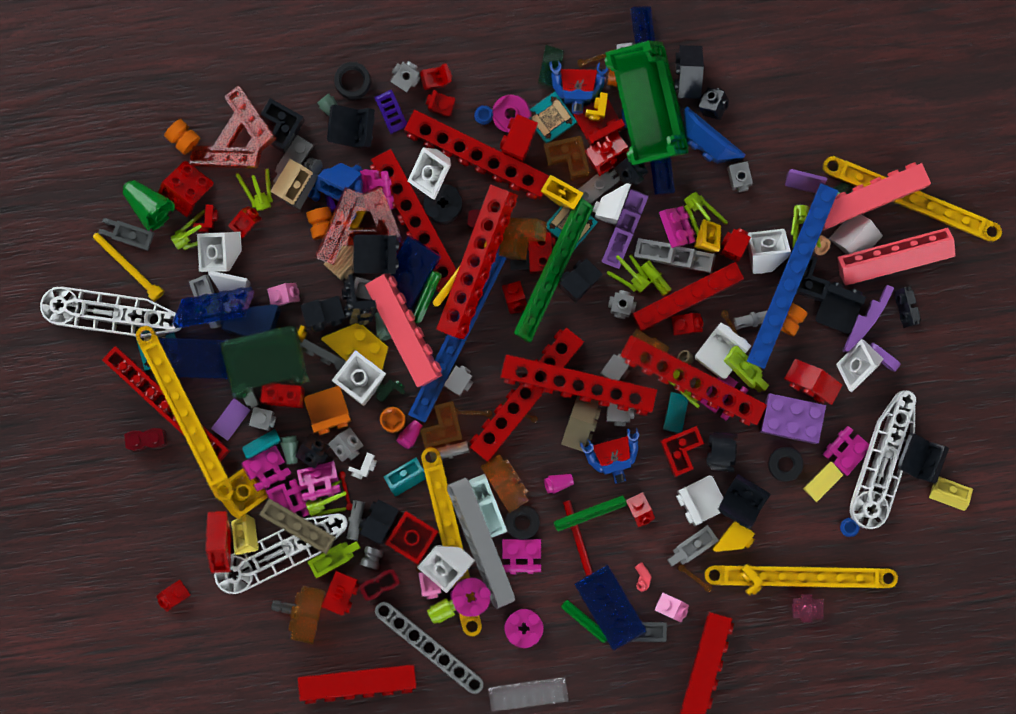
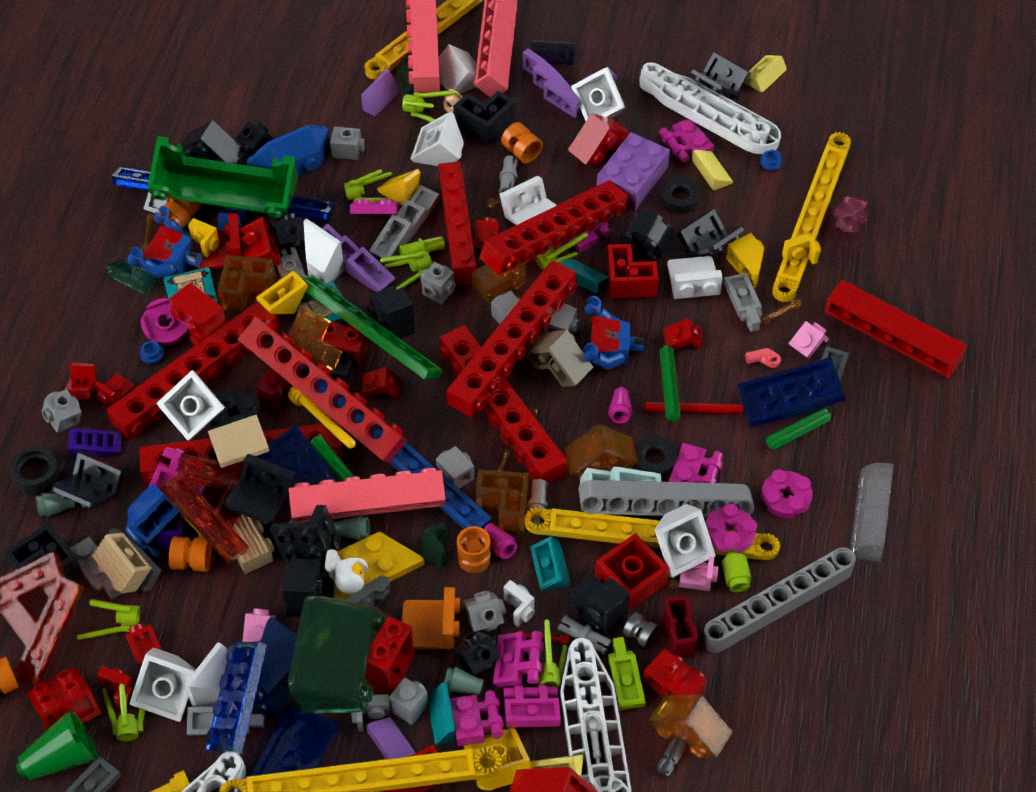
camera: 70 degrees left, 30 degrees down
(297, 526) = (568, 694): dark tan tile -> none
(337, 342) = (346, 573): none -> white piece
(356, 683) = (800, 697): red brick -> none
(359, 378) = (407, 566): white slope -> none
(410, 221) = (237, 440): none -> tan slope
(735, 244) = (421, 155): red brick -> none
(748, 372) = (558, 192): lime hinge -> none
(792, 276) = (479, 117): blue plate -> none
(840, 308) = (531, 103): black bracket -> none

